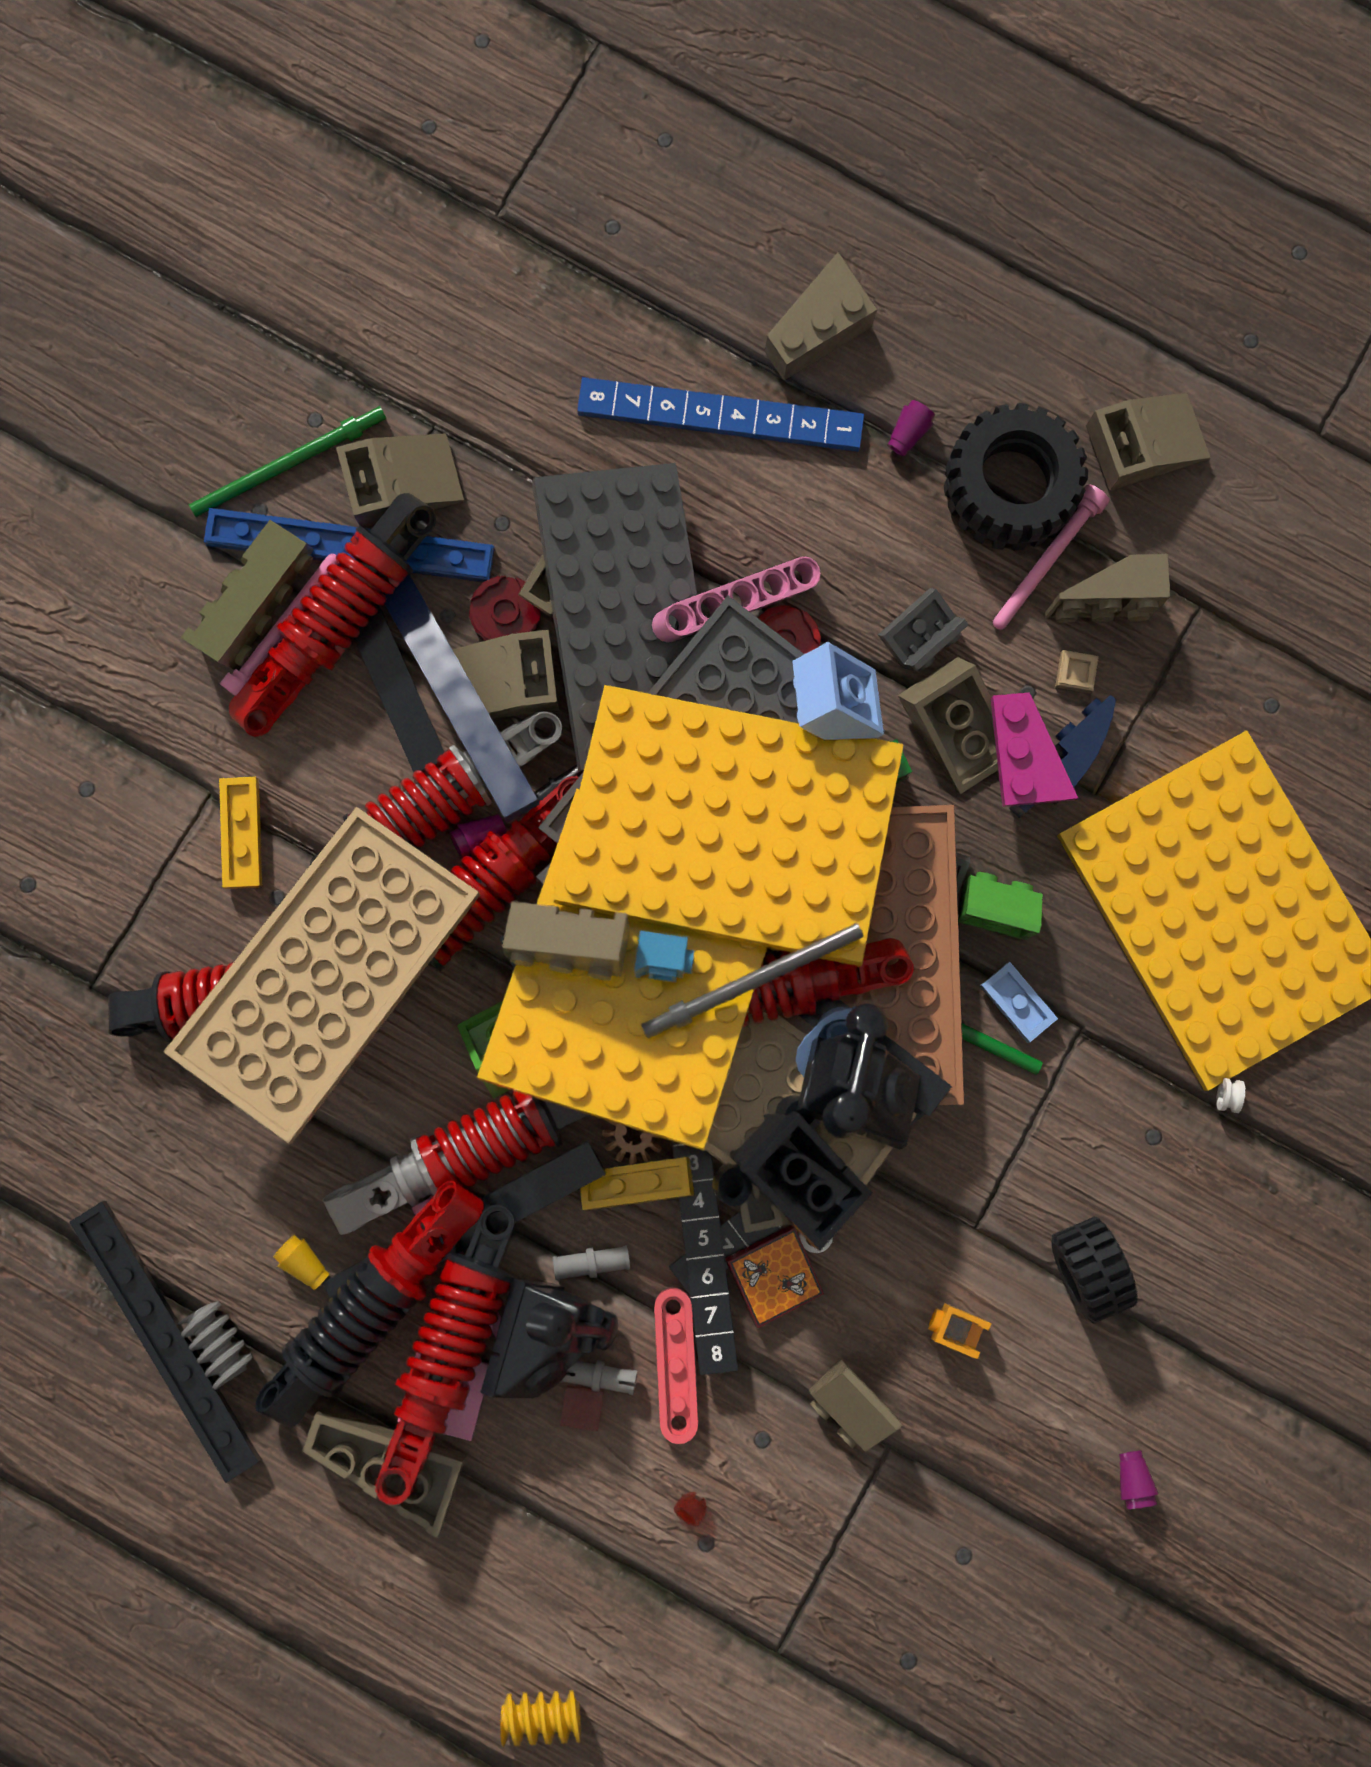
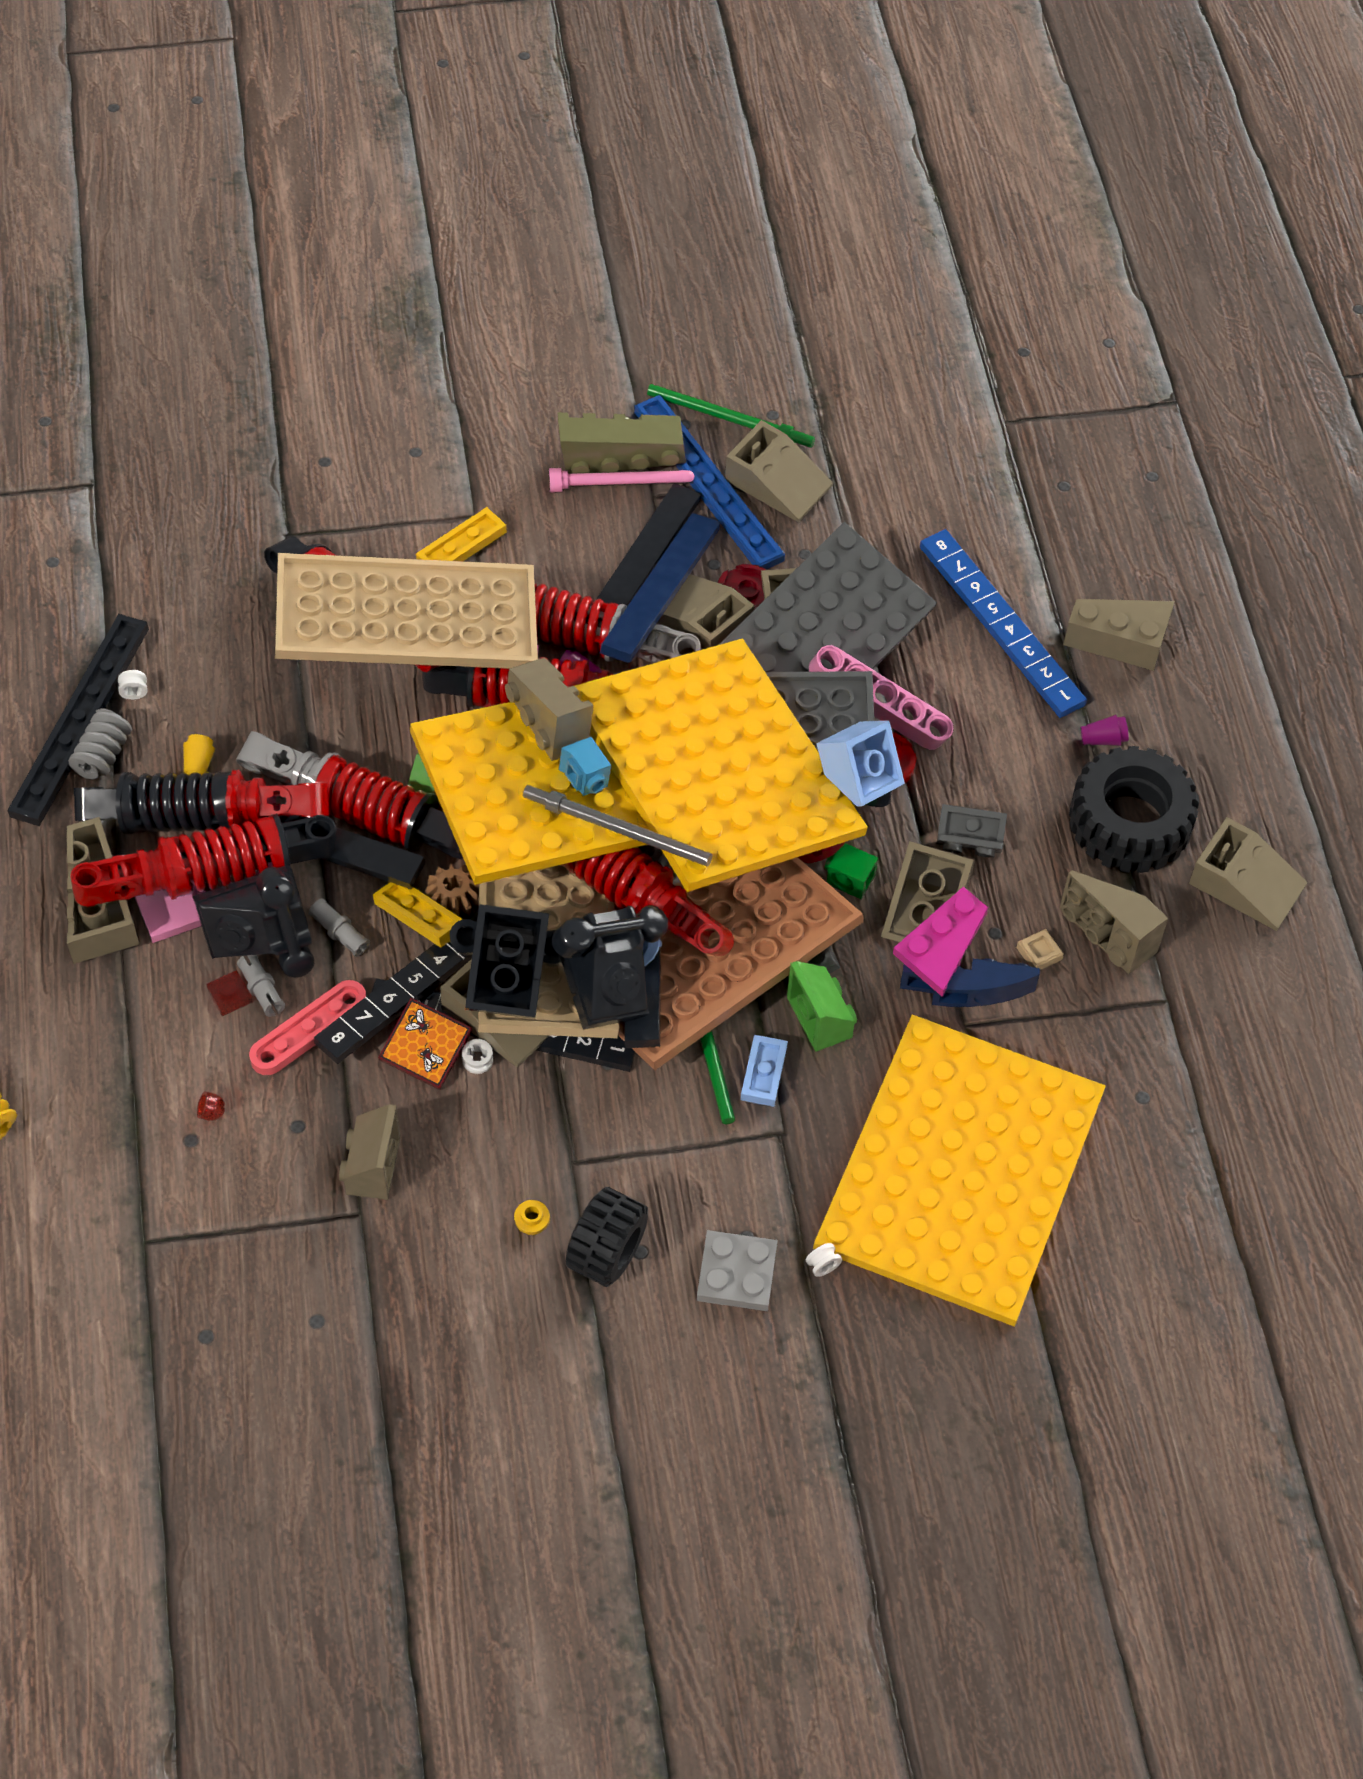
camera: 55 degrees right, 25 degrees down
(165, 1264) = (132, 684): none -> white bush
(335, 613) = (655, 492): piece -> none
(957, 1329) = (486, 1192): light orange window -> none
(996, 1304) = (532, 1226): none -> yellow plate
(1092, 503) = (1164, 874): bright pink piece -> none
(1136, 1481) = (469, 1397): magenta cone -> none
(1181, 1171) = (737, 1270): none -> light grey plate

